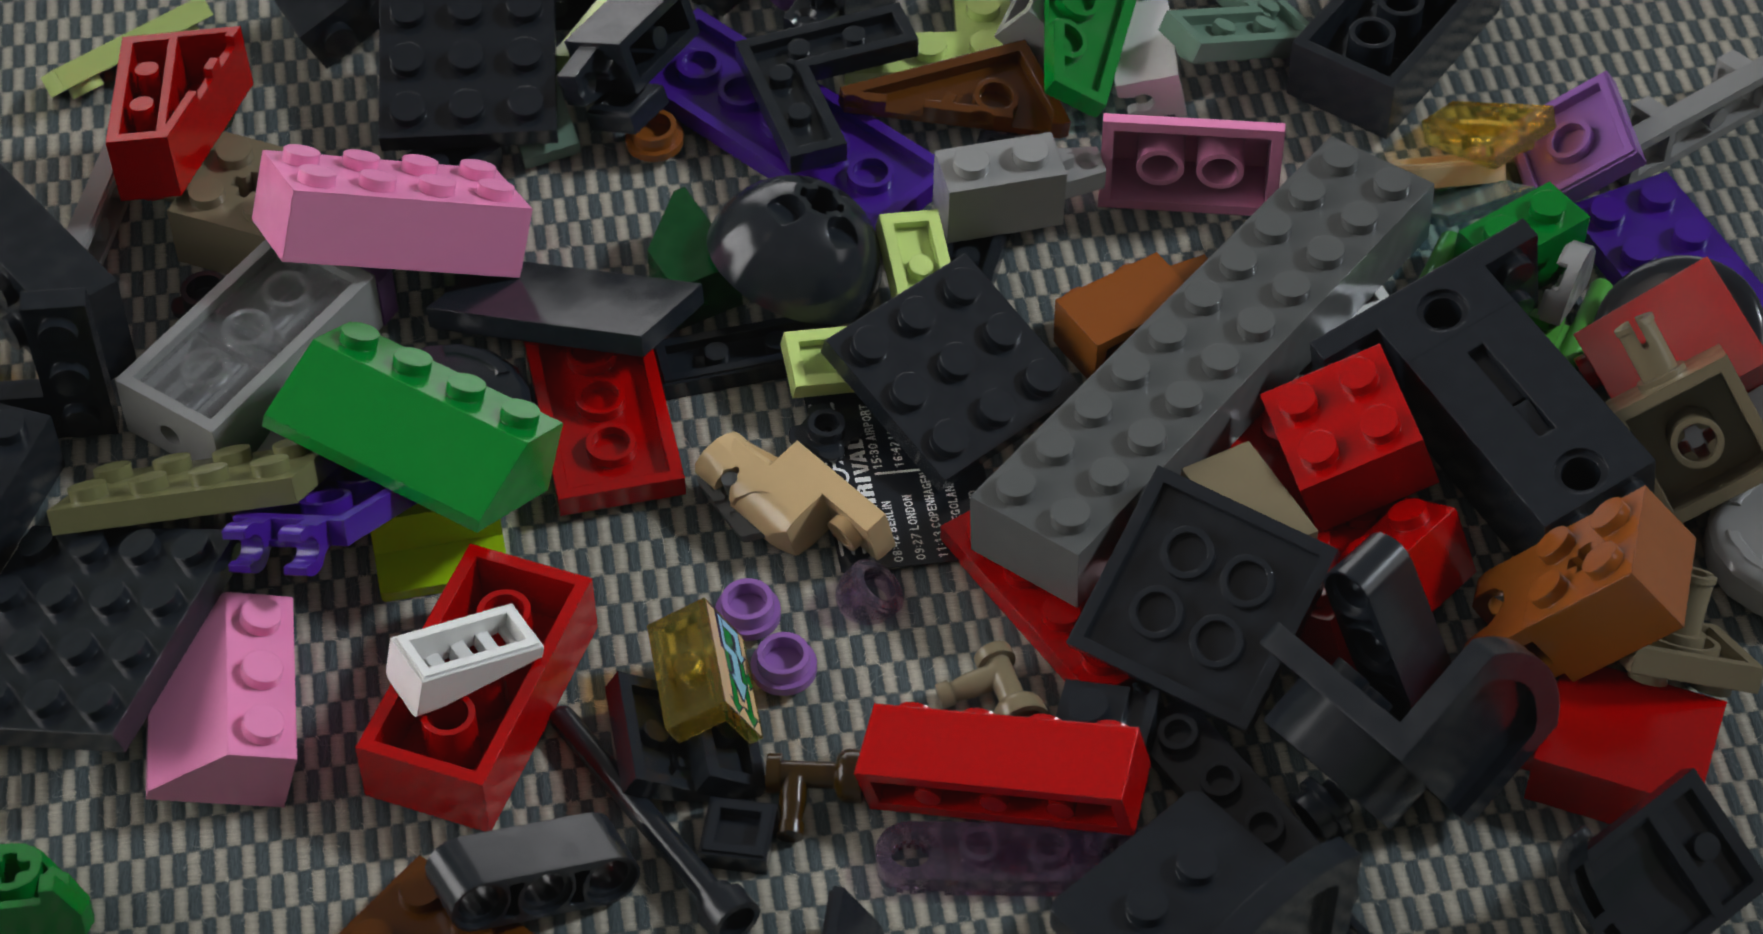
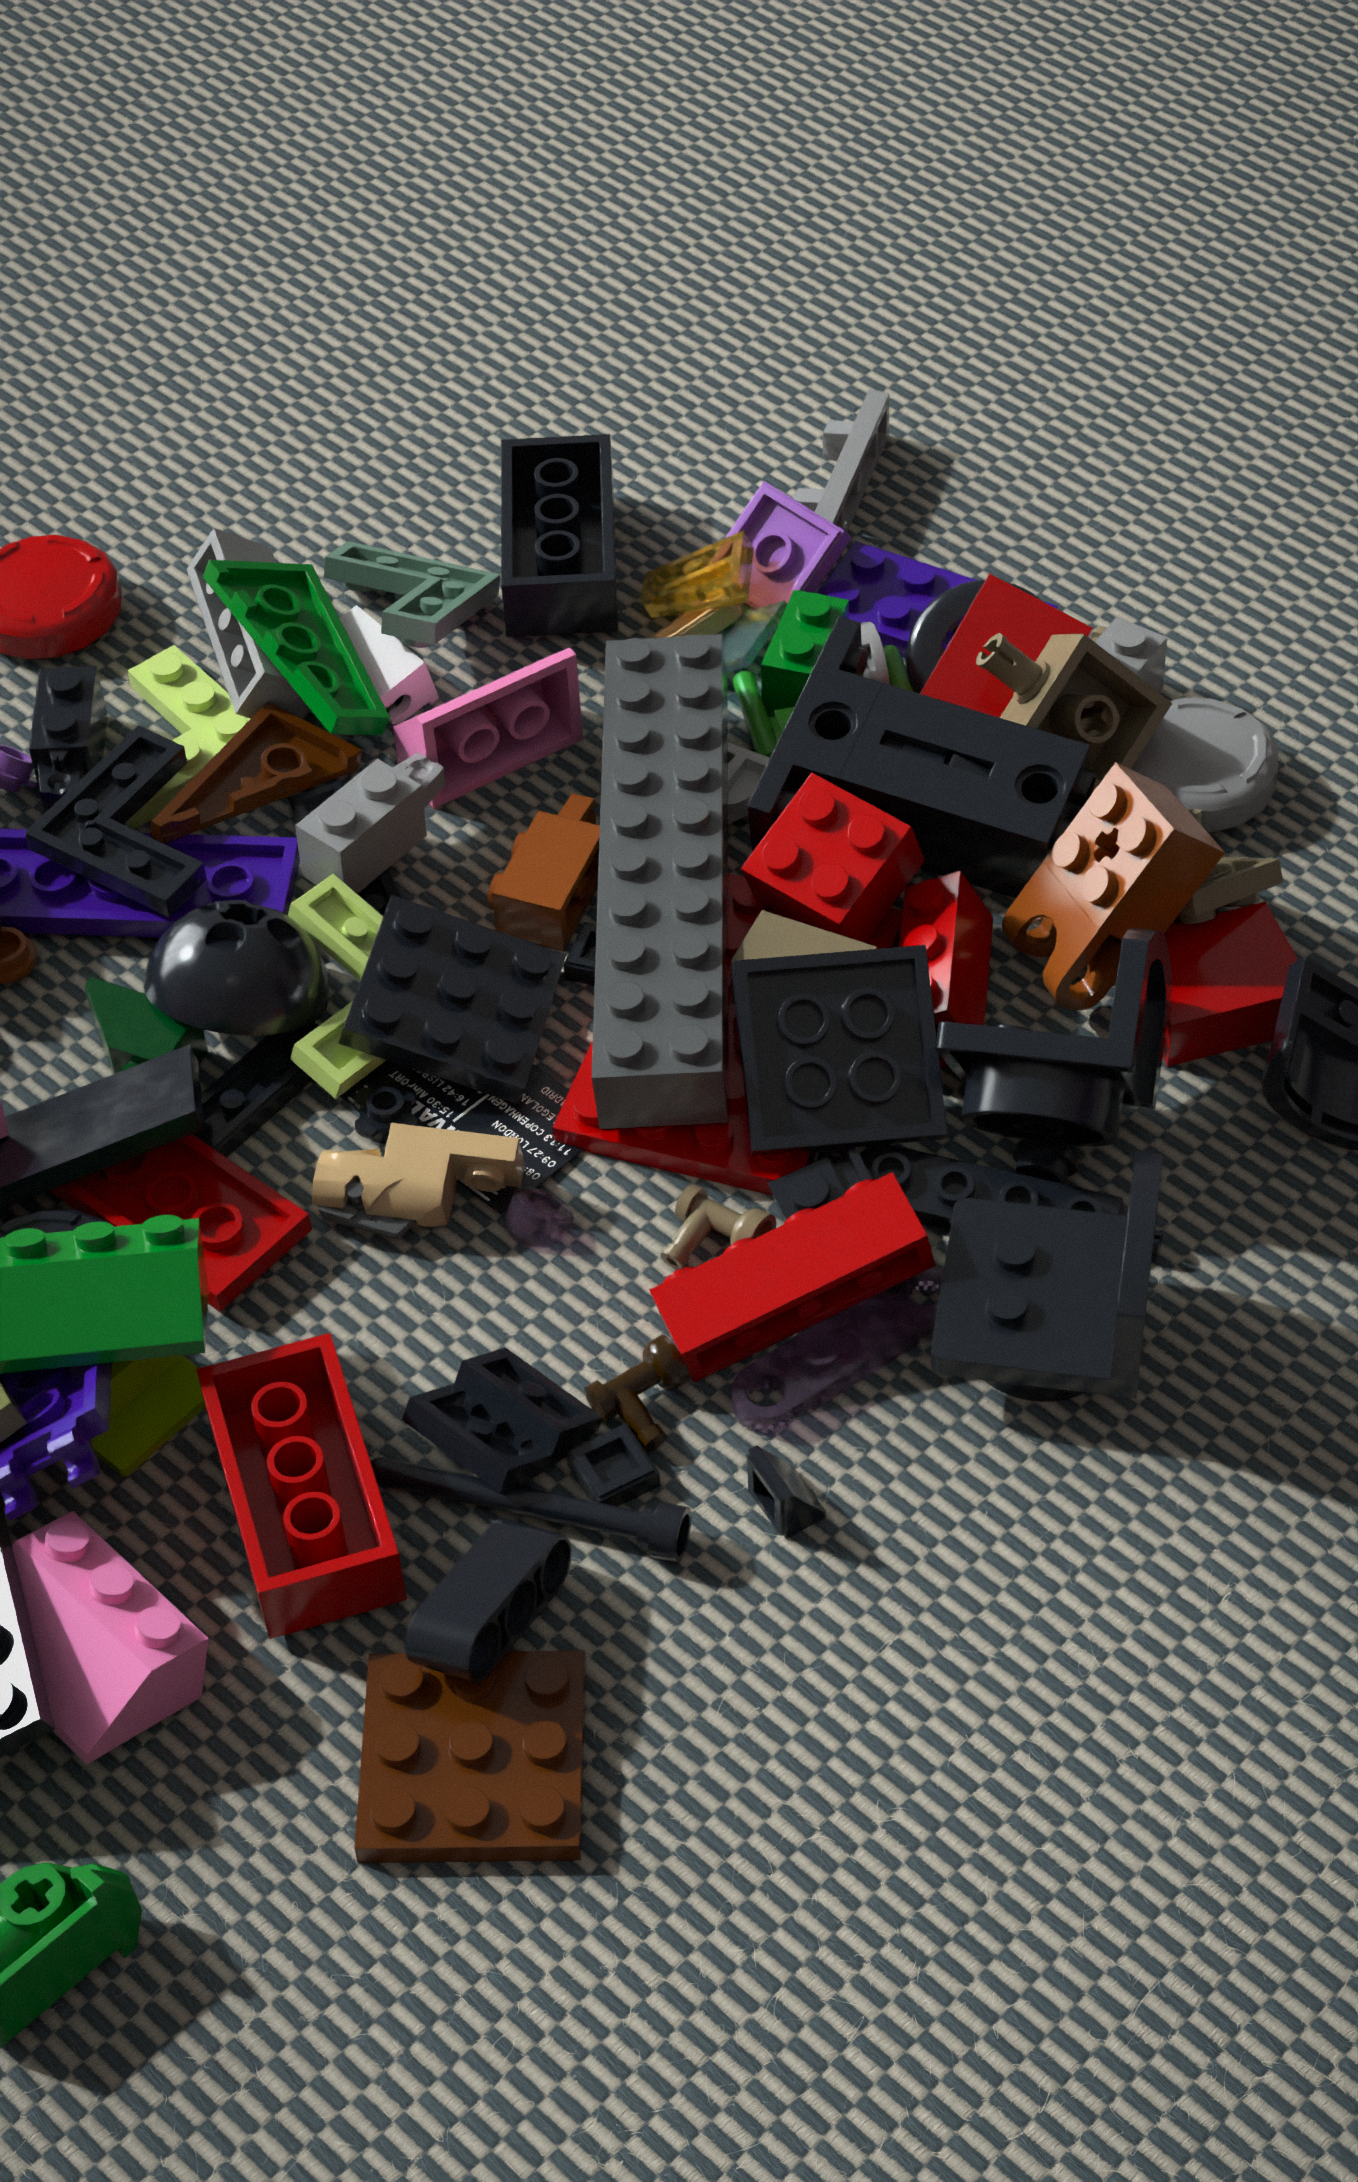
camera: 35 degrees left, 0 degrees up
(429, 683) = (278, 1501): white slope -> none
(703, 673) = (476, 1357): clear yellow panel -> none
(750, 608) = (455, 1289): medium lavender plate -> none
(783, 664) = (526, 1312): medium lavender plate -> none
(1387, 621) = (984, 976): black beam -> none

